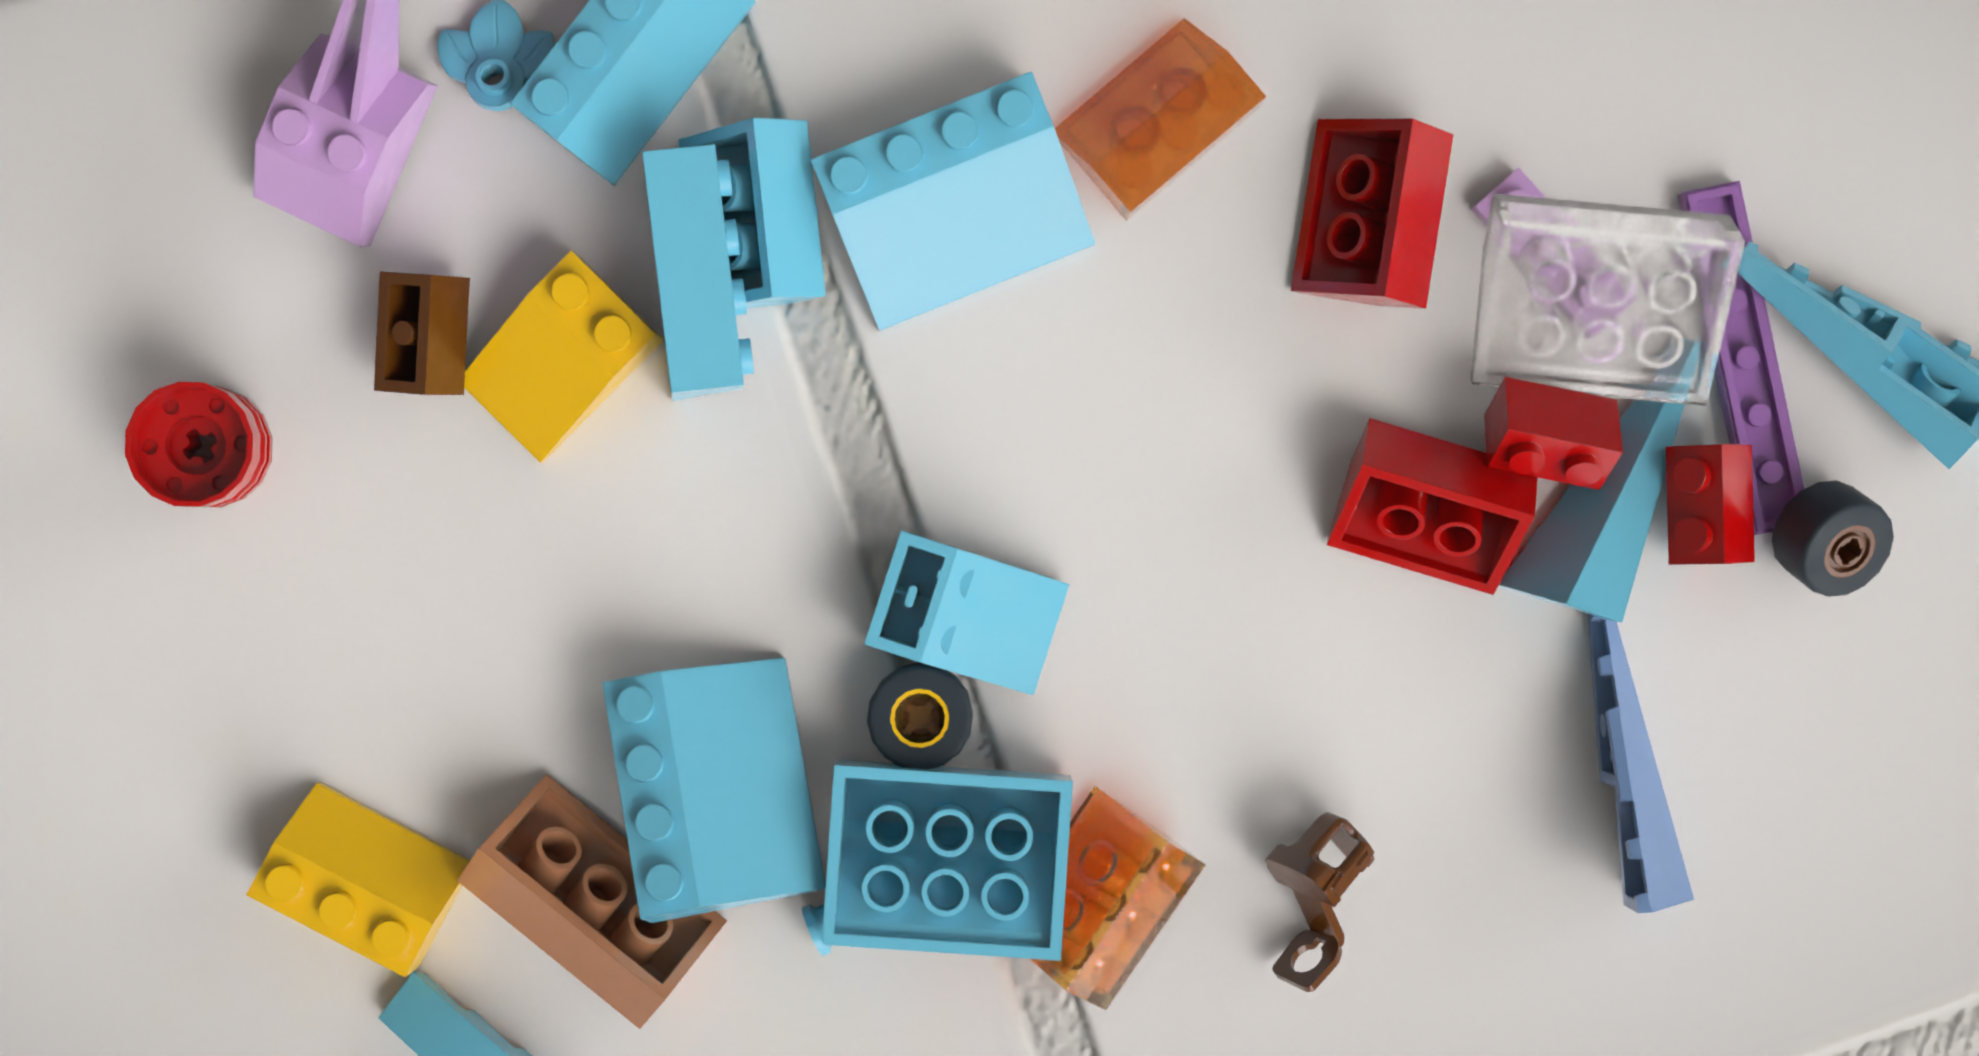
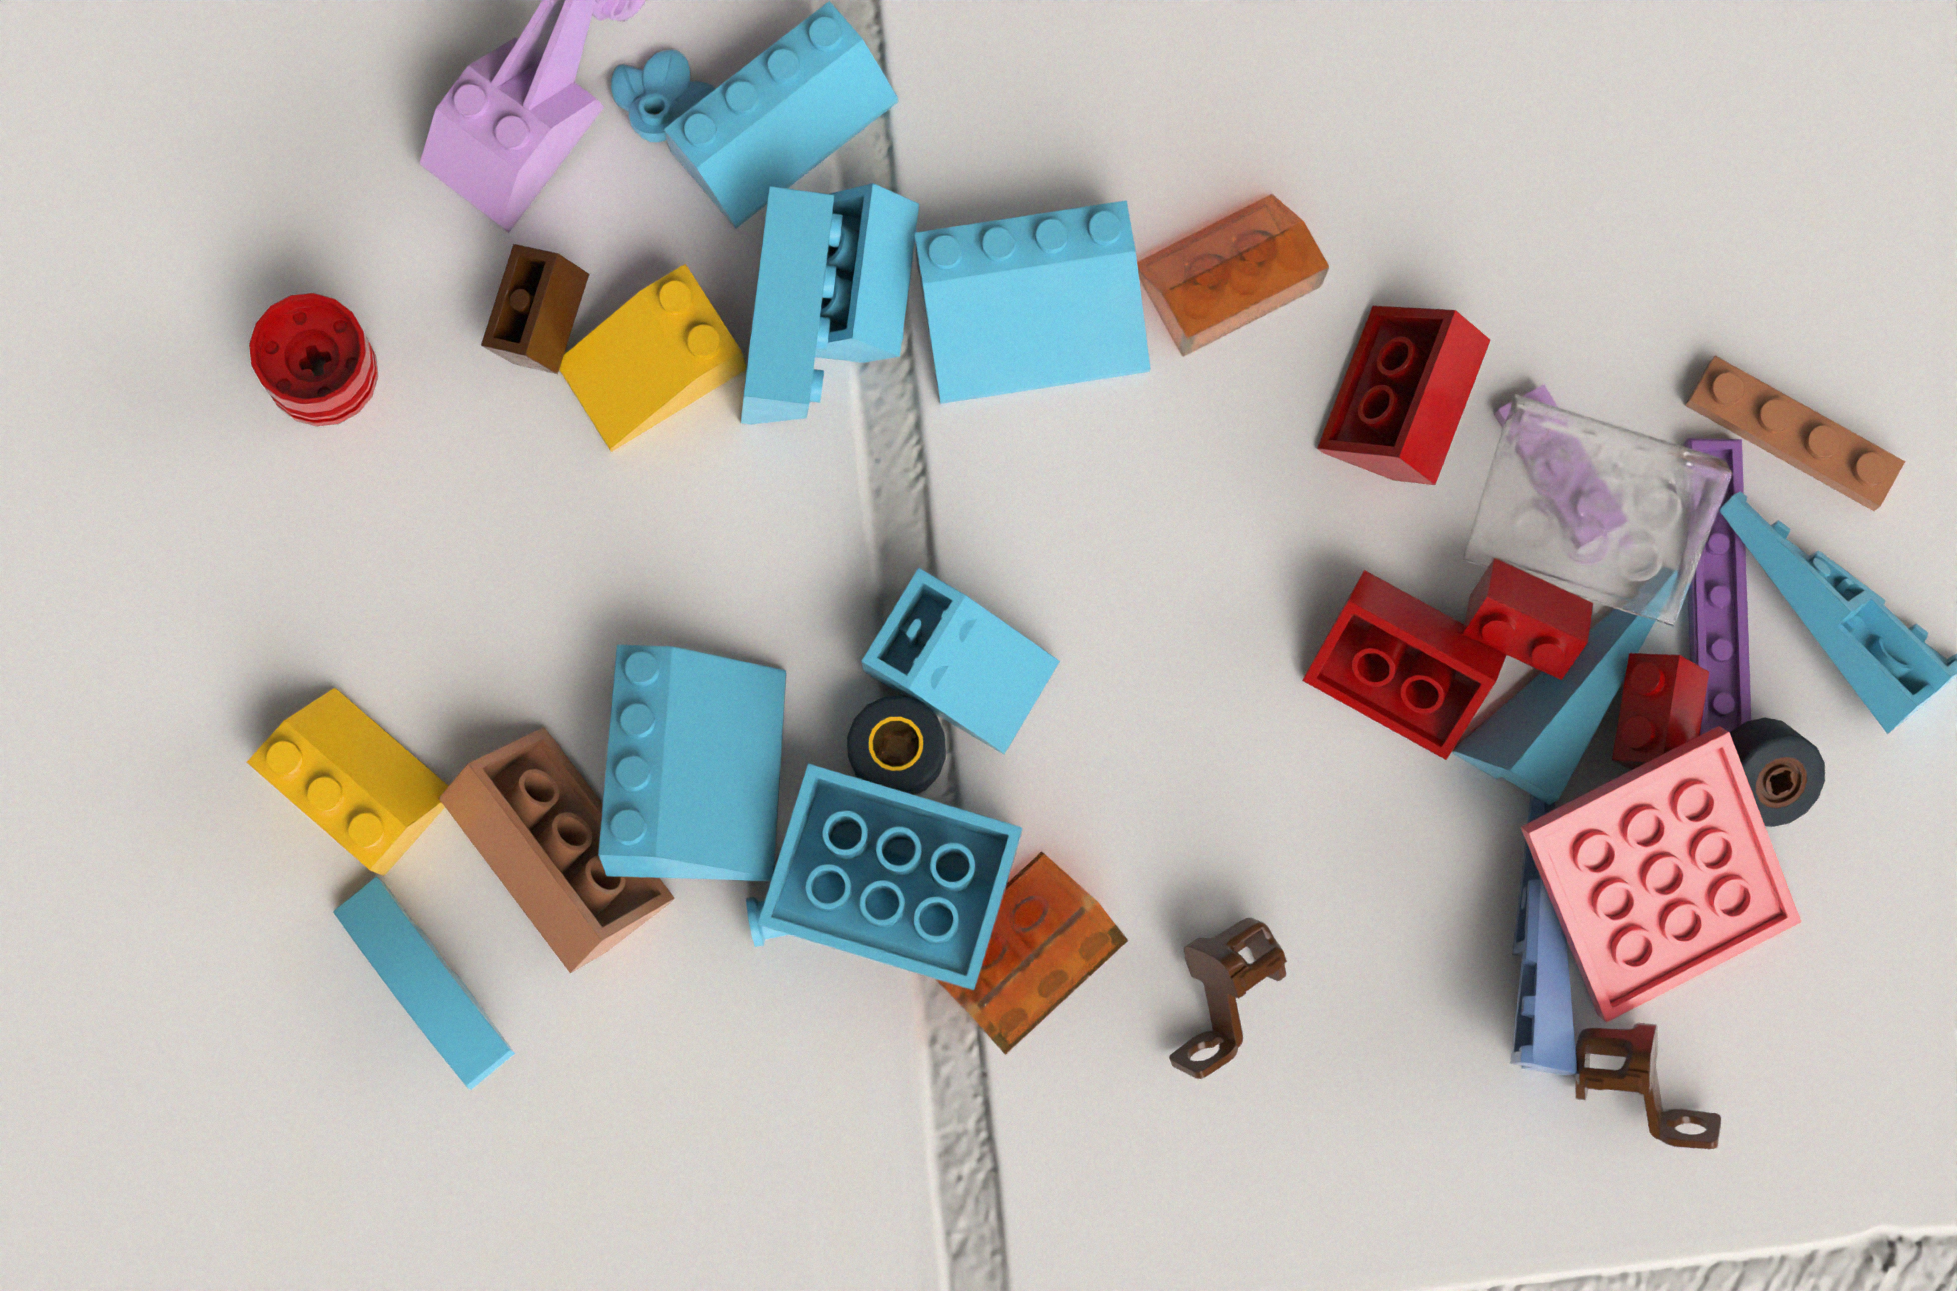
camera: 15 degrees right, 10 degrees down
(1743, 674) = (1661, 873): none -> plate
(1760, 891) = (1640, 1076): none -> reddish brown piece
(1794, 159) = (1795, 433): none -> nougat plate

